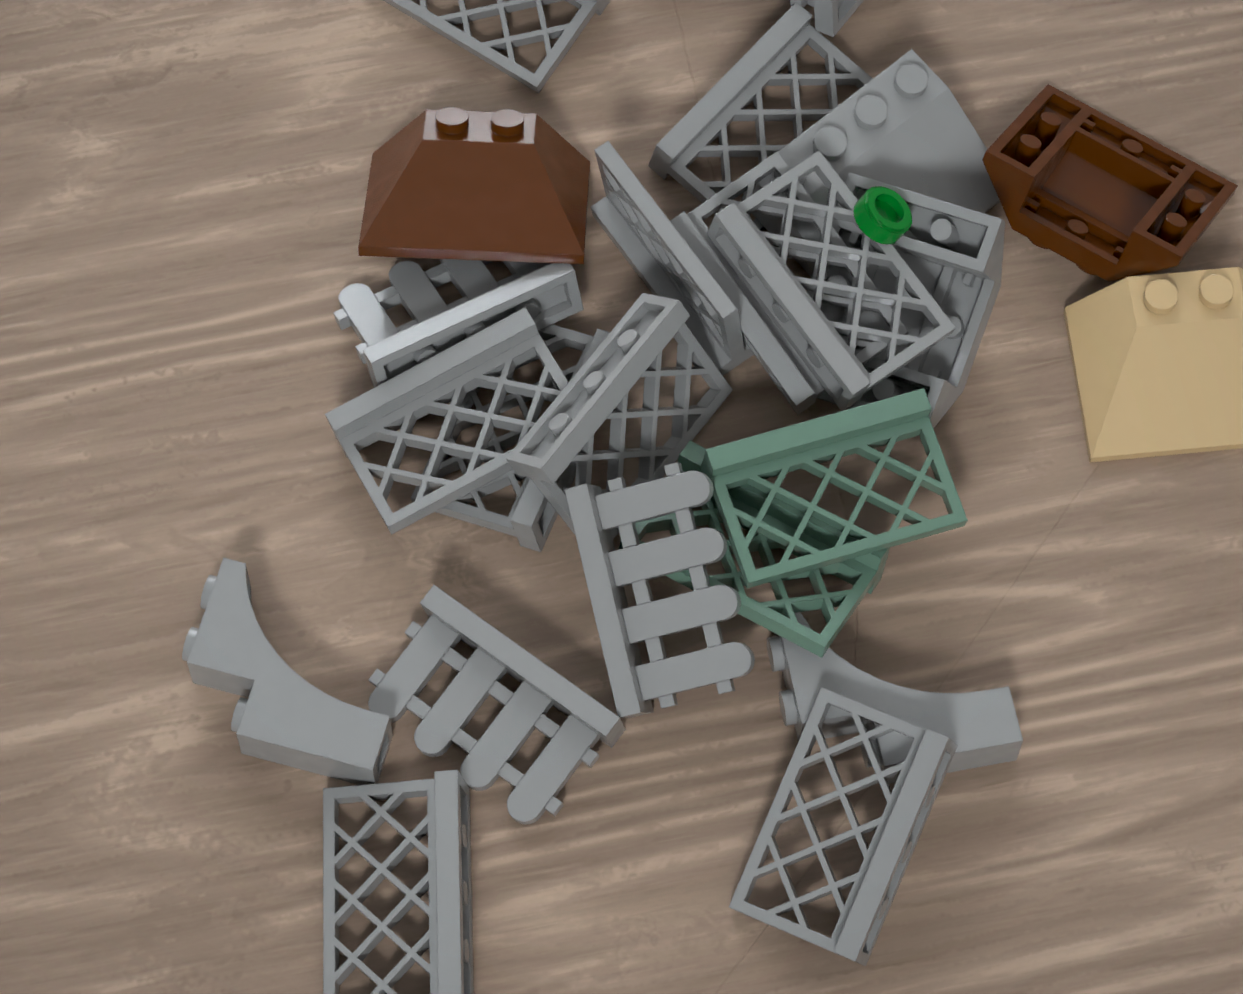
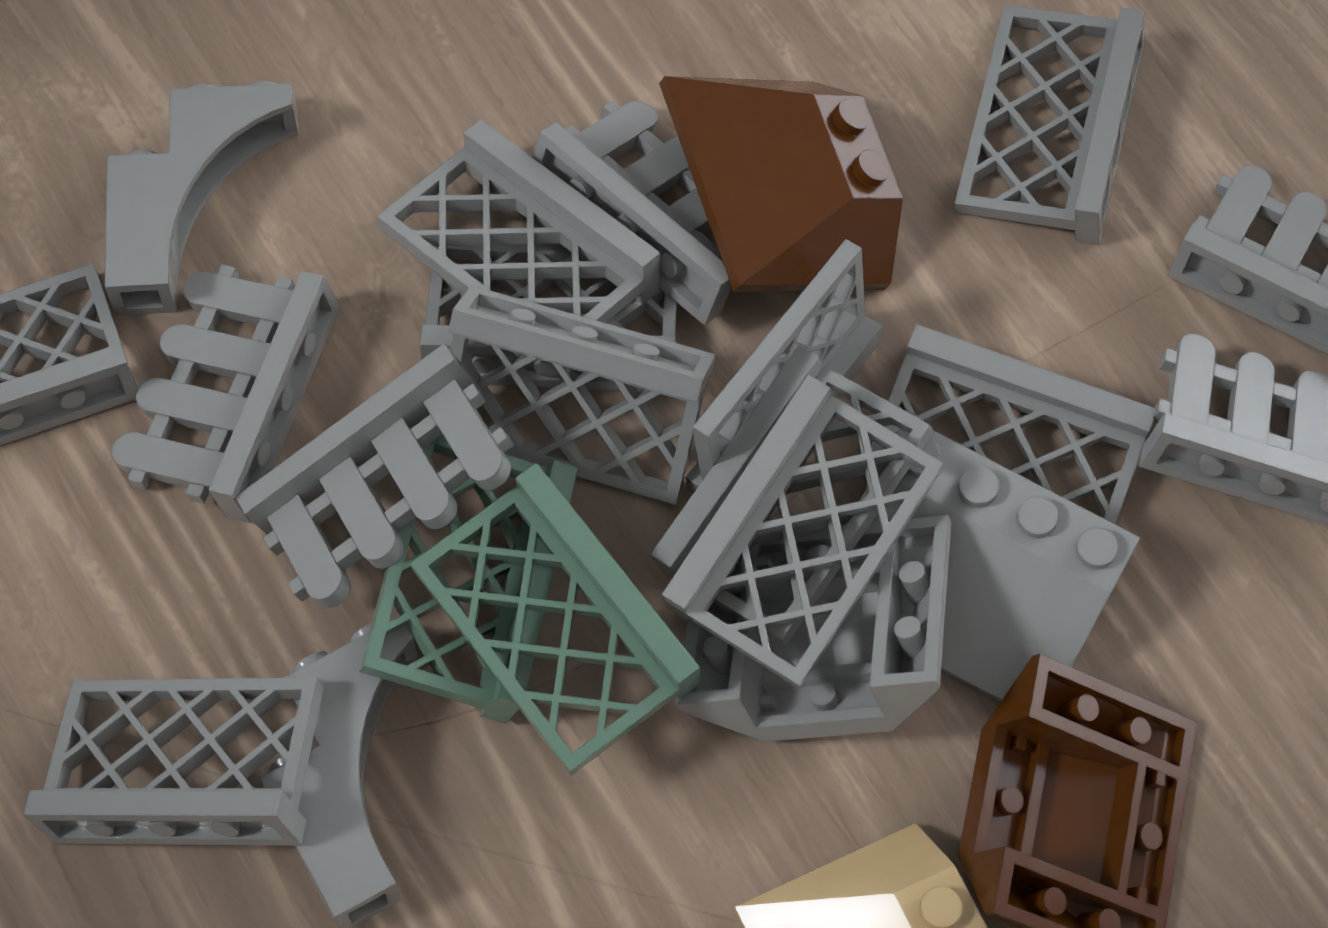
camera: 70 degrees right, 0 degrees up
(882, 215) = (894, 556): green tile -> none

